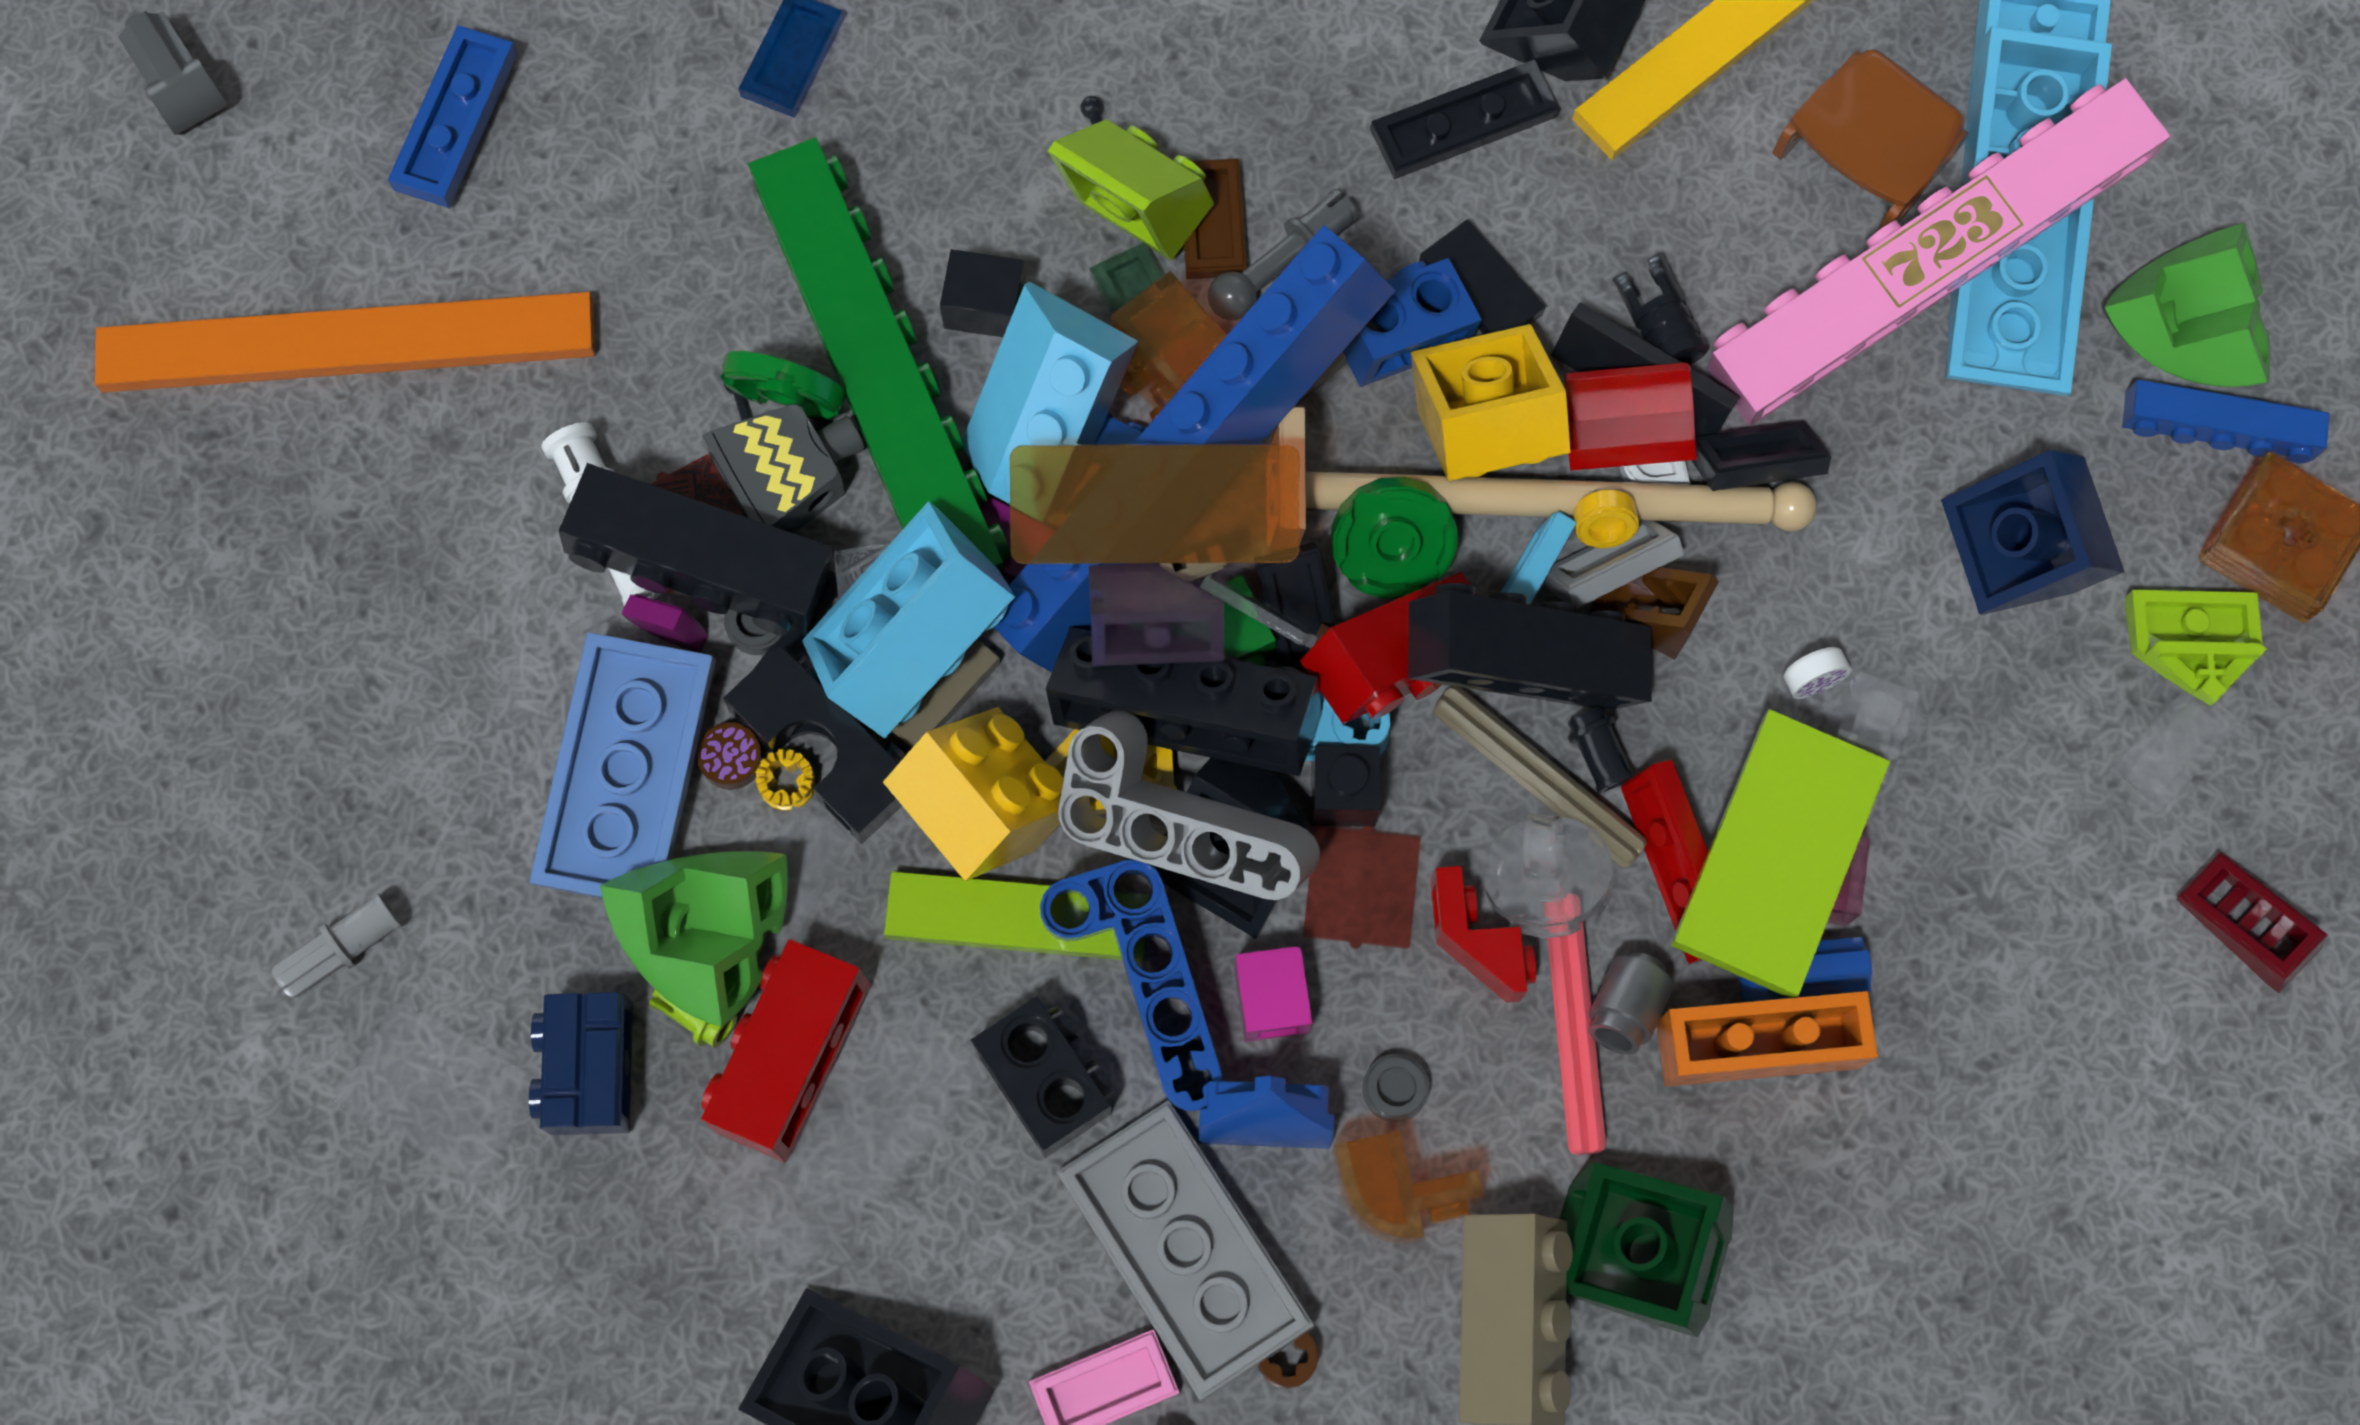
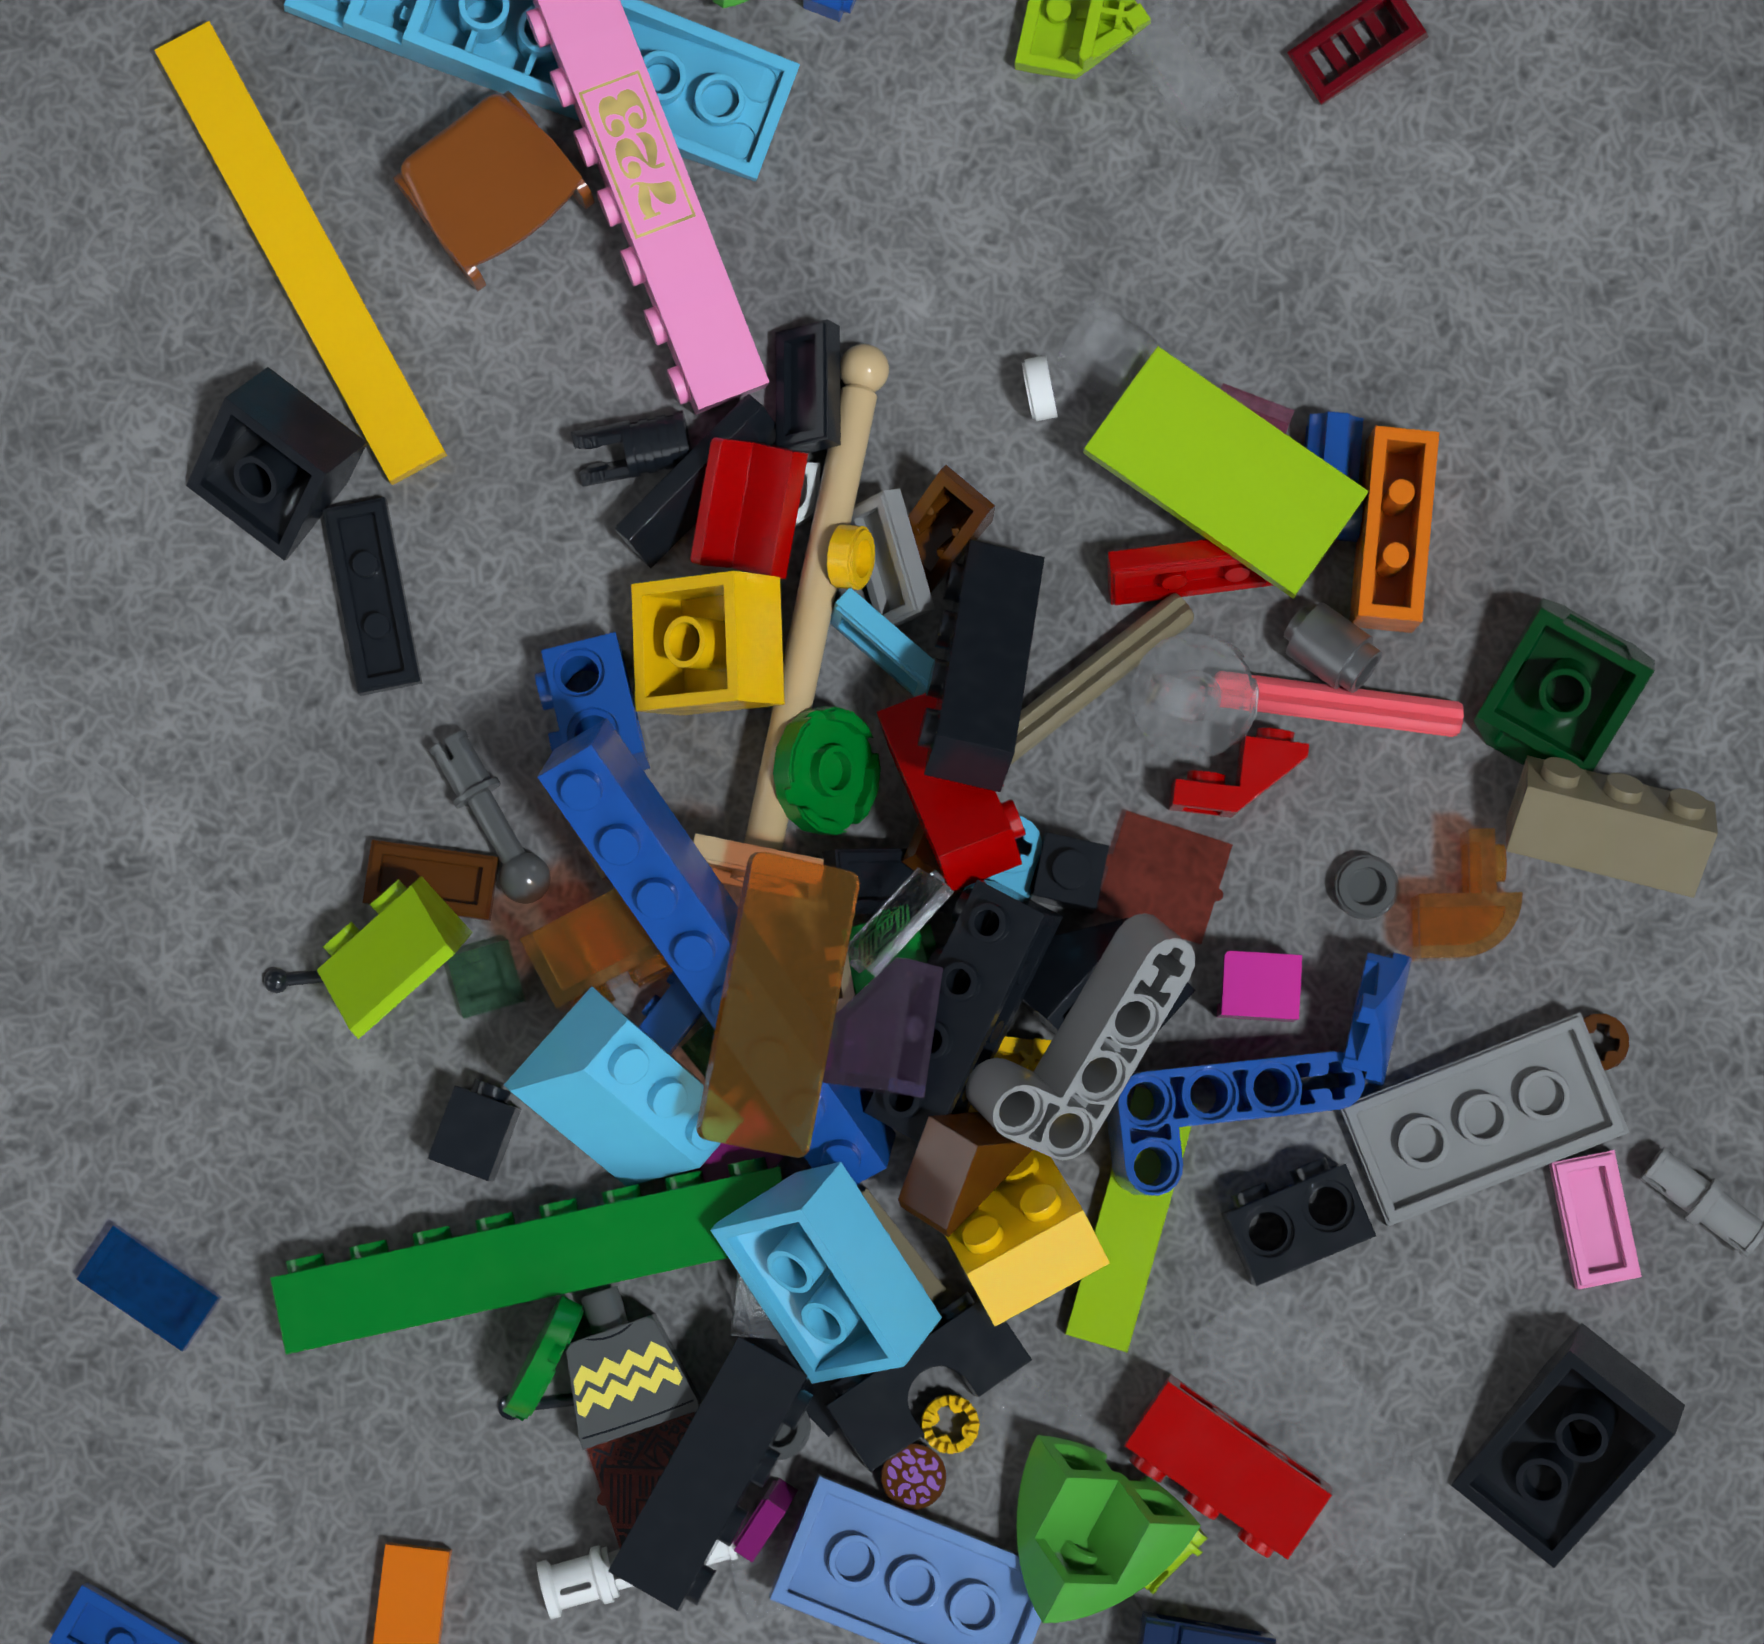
camera: 75 degrees left, 10 degrees up
(1030, 715) = (957, 1169): none -> reddish brown slope
(1489, 281) = (561, 615): black tile -> none
(1600, 749) = (1075, 615): black pin -> none
(2032, 533) = (941, 142): dark blue slope -> none

